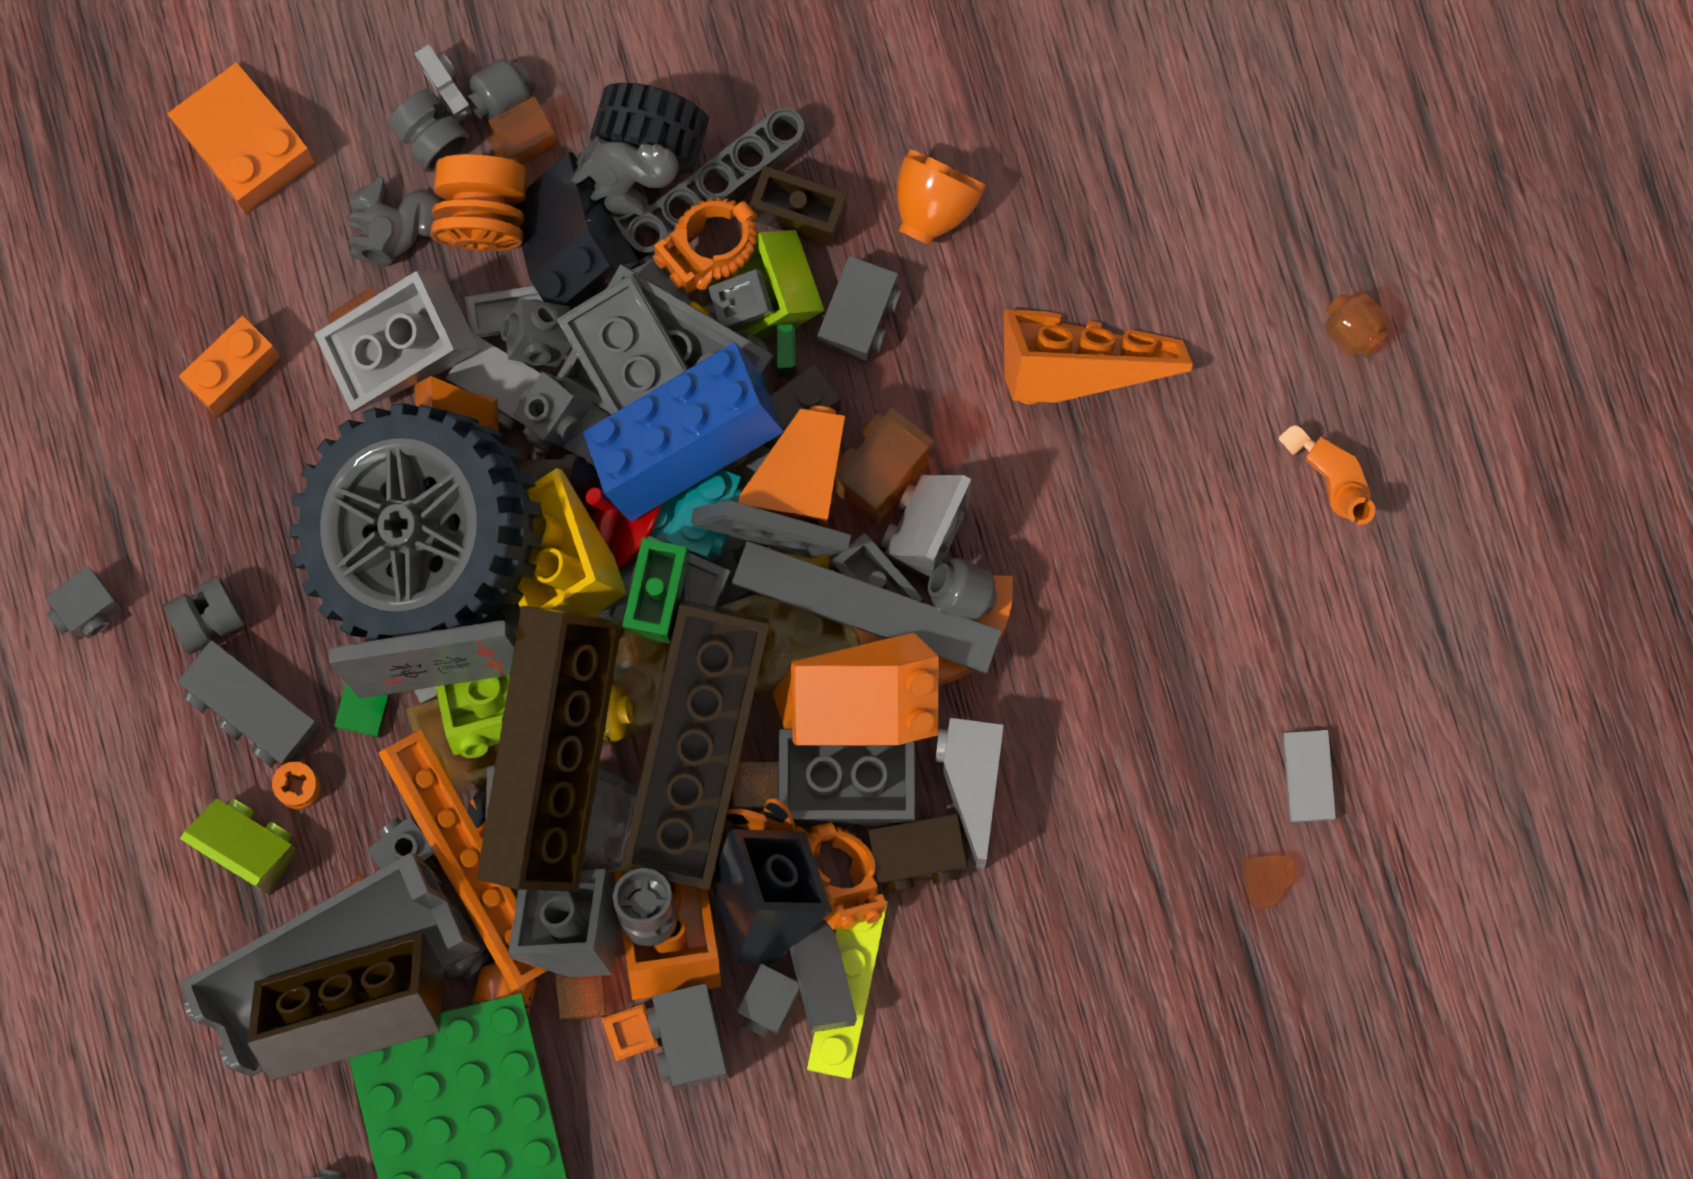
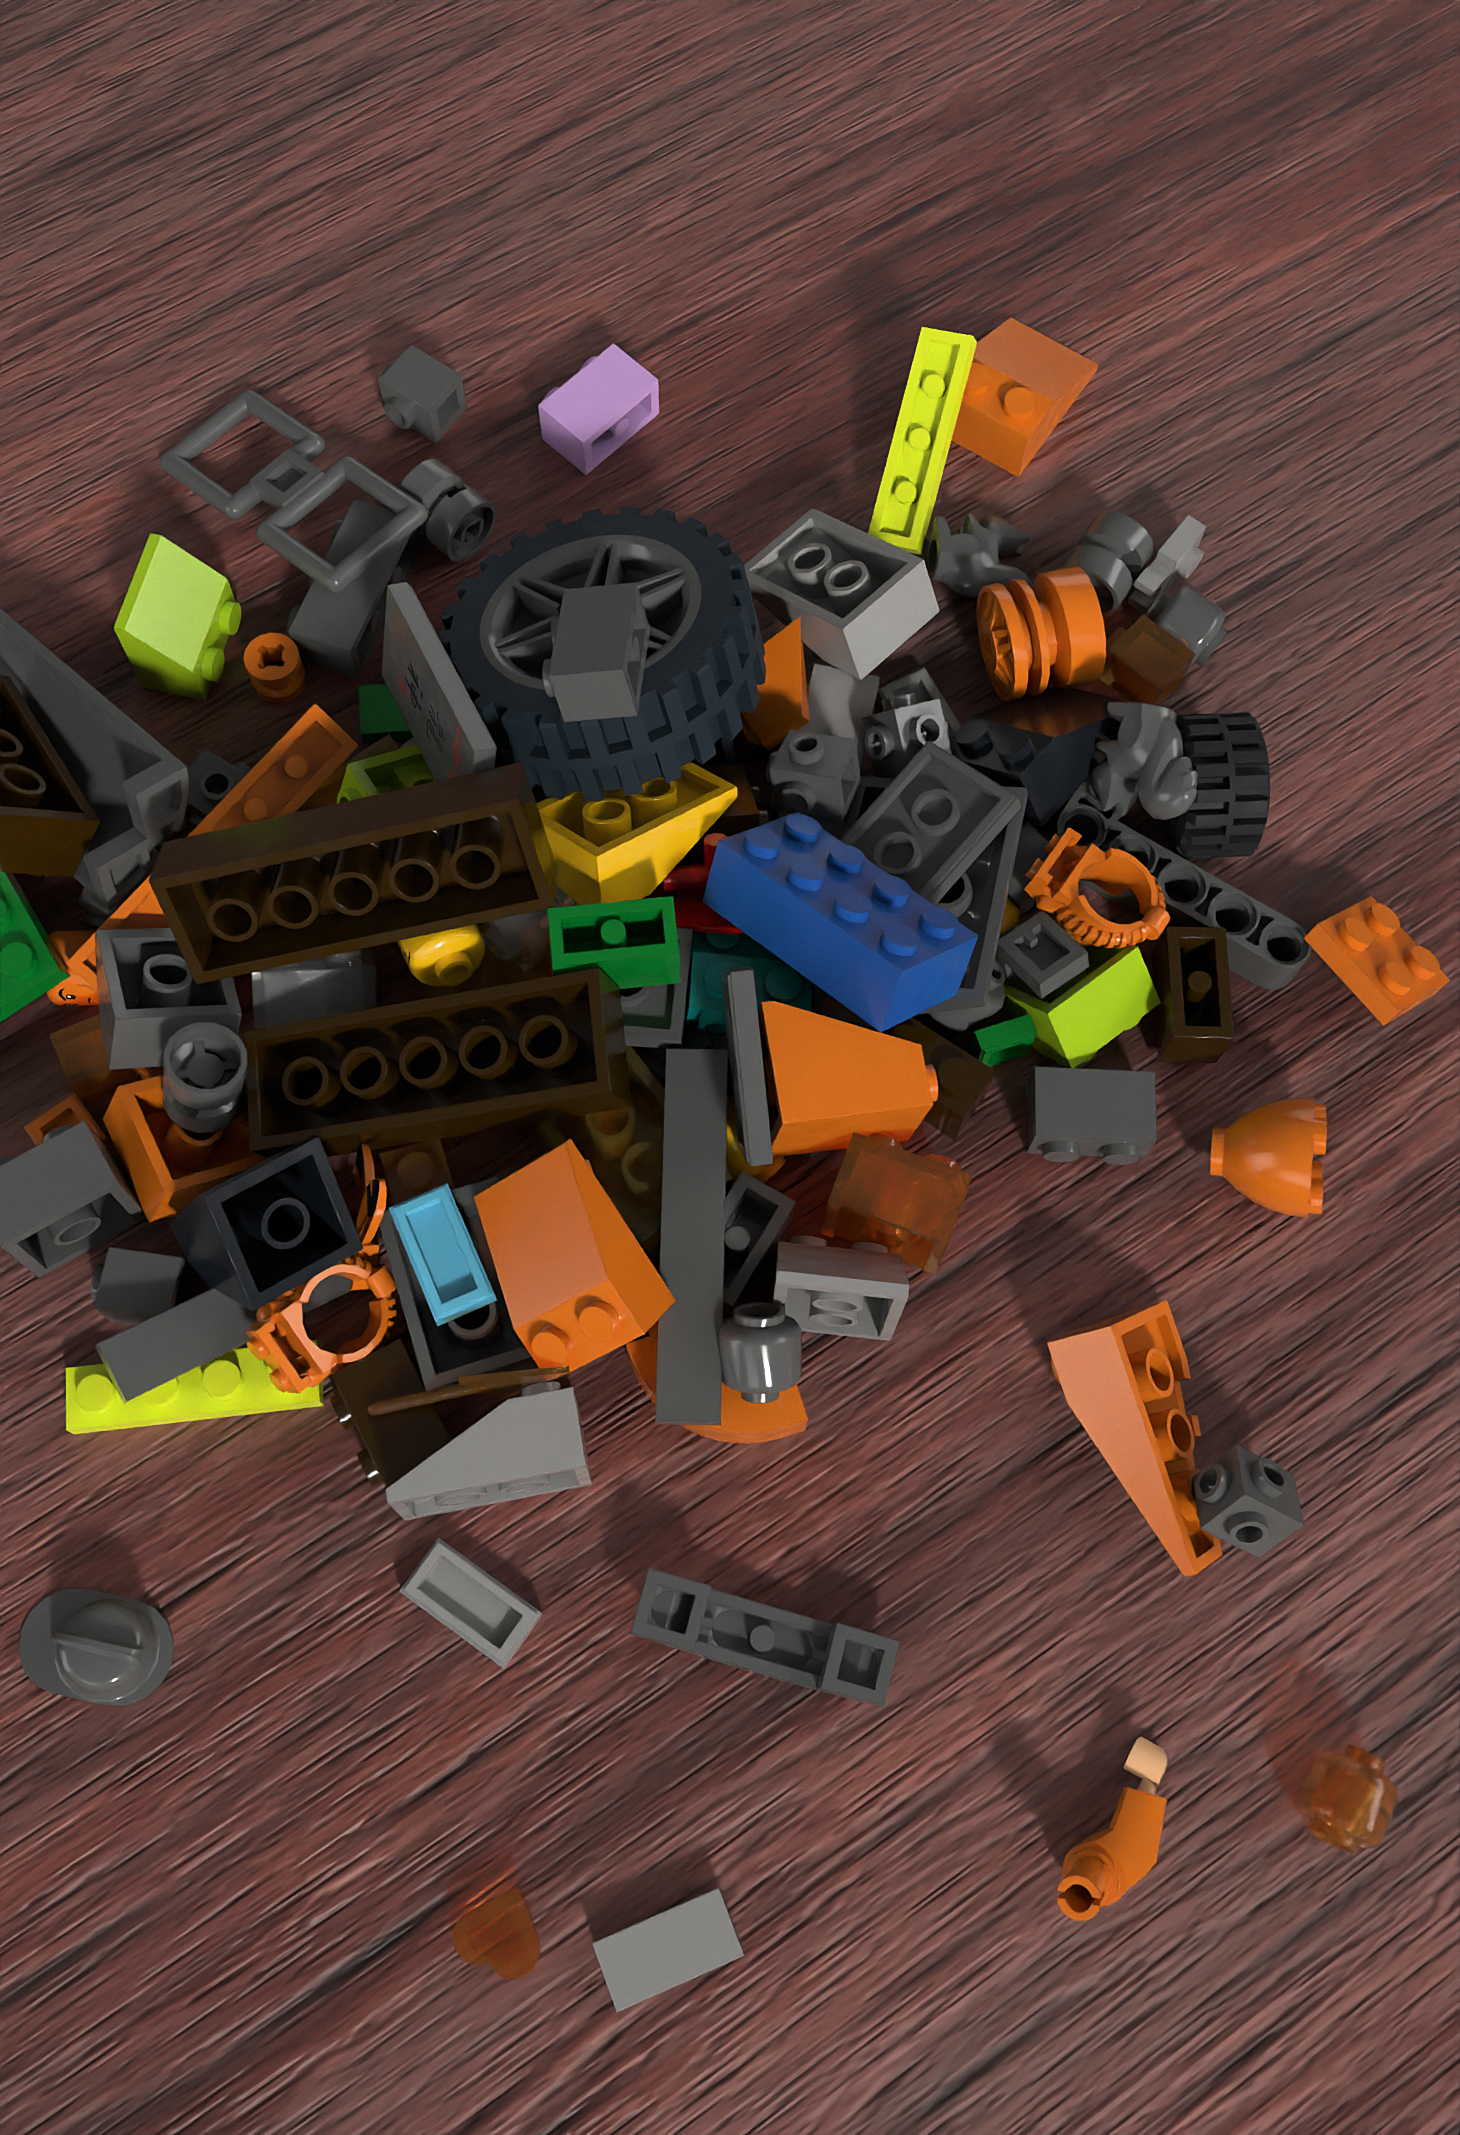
camera: 65 degrees right, 10 degrees down
(144, 728) = (293, 489): none -> dark grey bar
(145, 467) = (599, 408): none -> lavender brick
(229, 366) = (745, 450): orange brick -> none
(279, 229) = (922, 438): none -> neon yellow plate
(457, 526) = (598, 652): none -> dark grey brick
(814, 66) = (1377, 959): none -> orange plate
(825, 780) = (442, 1254): none -> medium azure tile
(923, 795) = (495, 1385): none -> clear orange piece
(1002, 1095) = (96, 1647): none -> dark grey piece
(1055, 839) = (471, 1603): none -> light grey tile
(1142, 652) = (764, 1639): none -> dark grey slope
(1157, 311) = (1247, 1501): none -> dark grey brick

